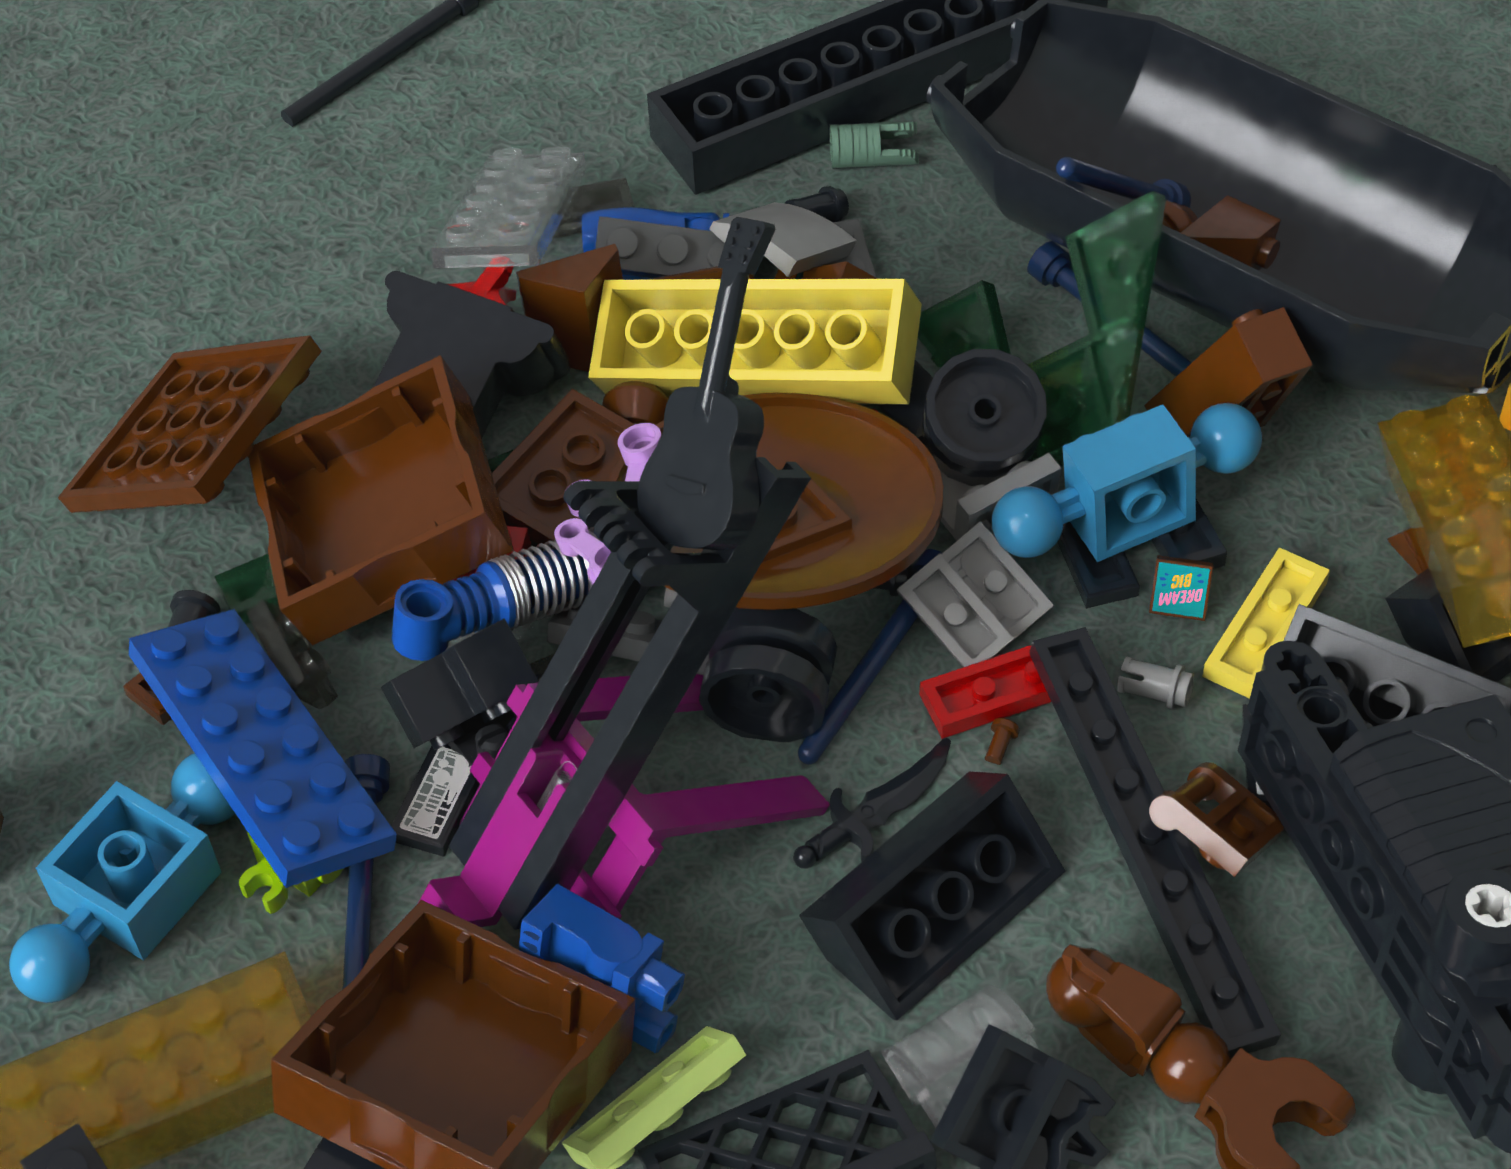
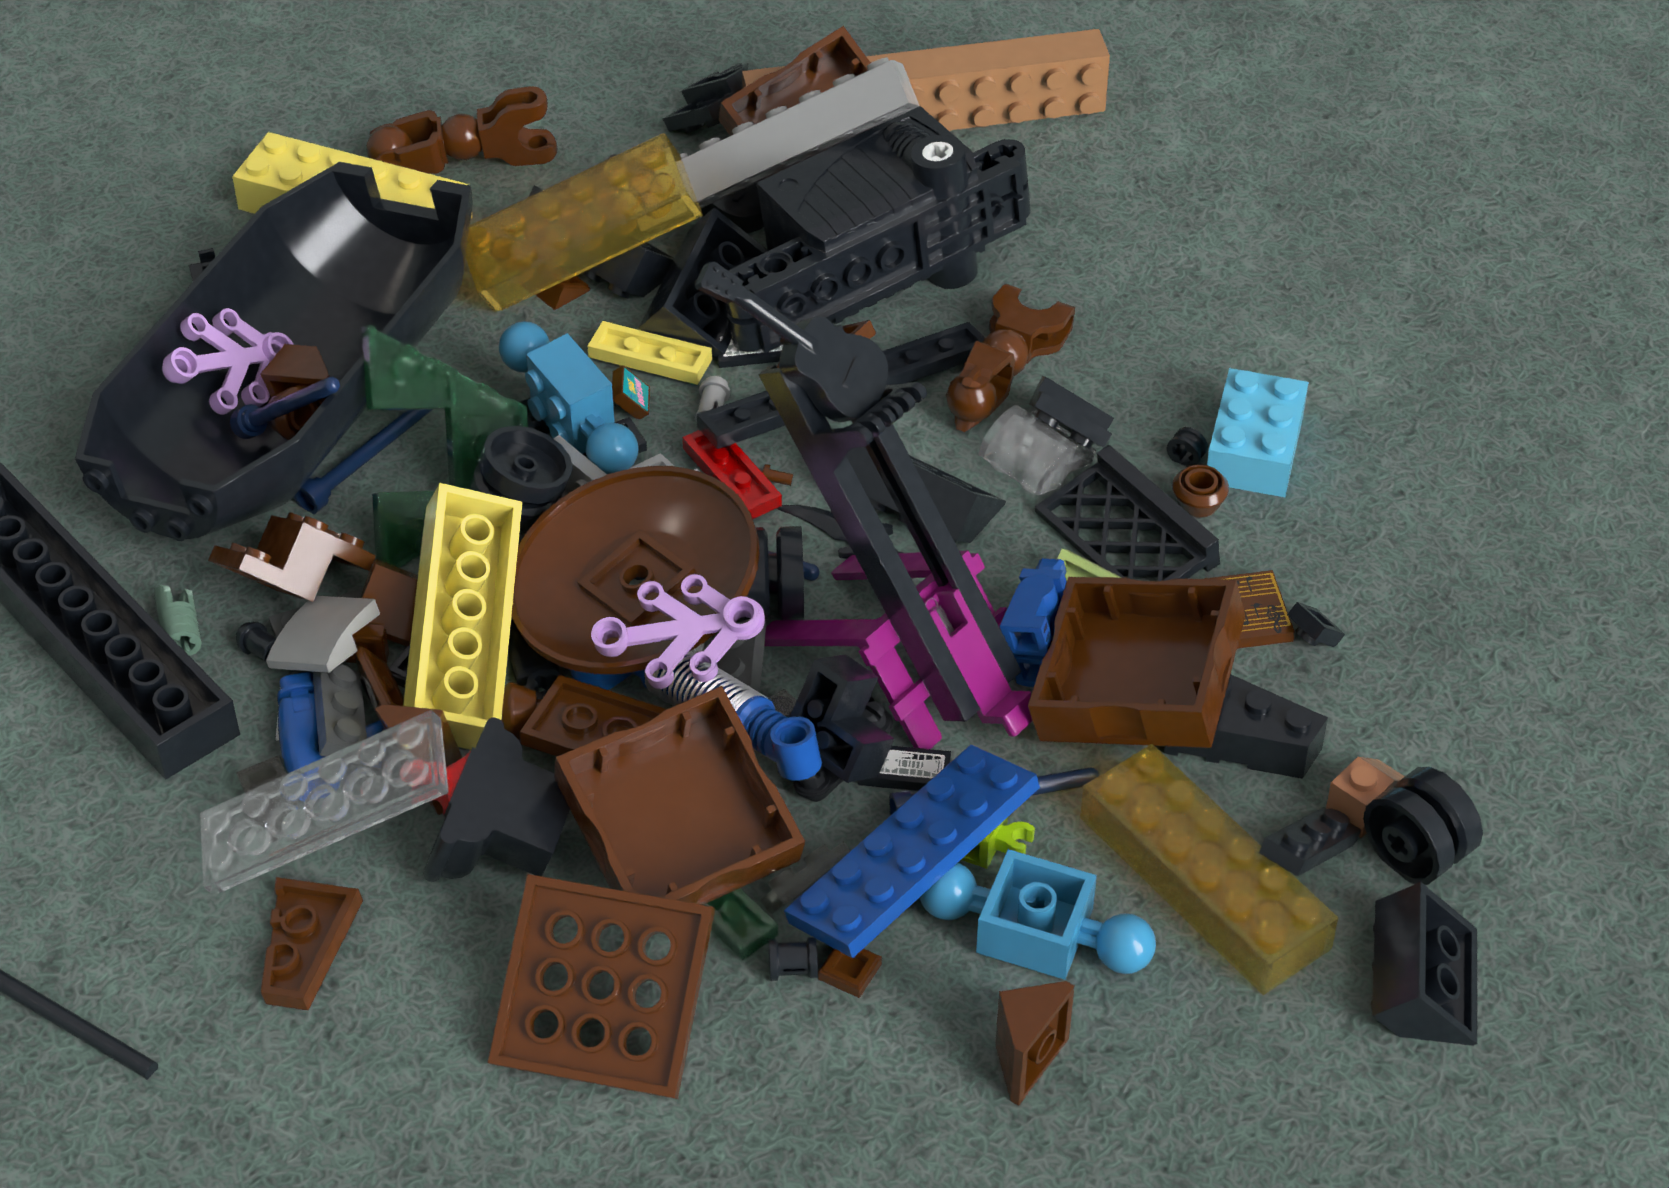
camera: 105 degrees left, 5 degrees down
(377, 225) = (305, 938): none -> reddish brown wing
(917, 223) = (293, 555): none -> reddish brown bracket
(1247, 366) = (468, 329): reddish brown wedge -> none
(1255, 169) = (183, 364): none -> lavender plant

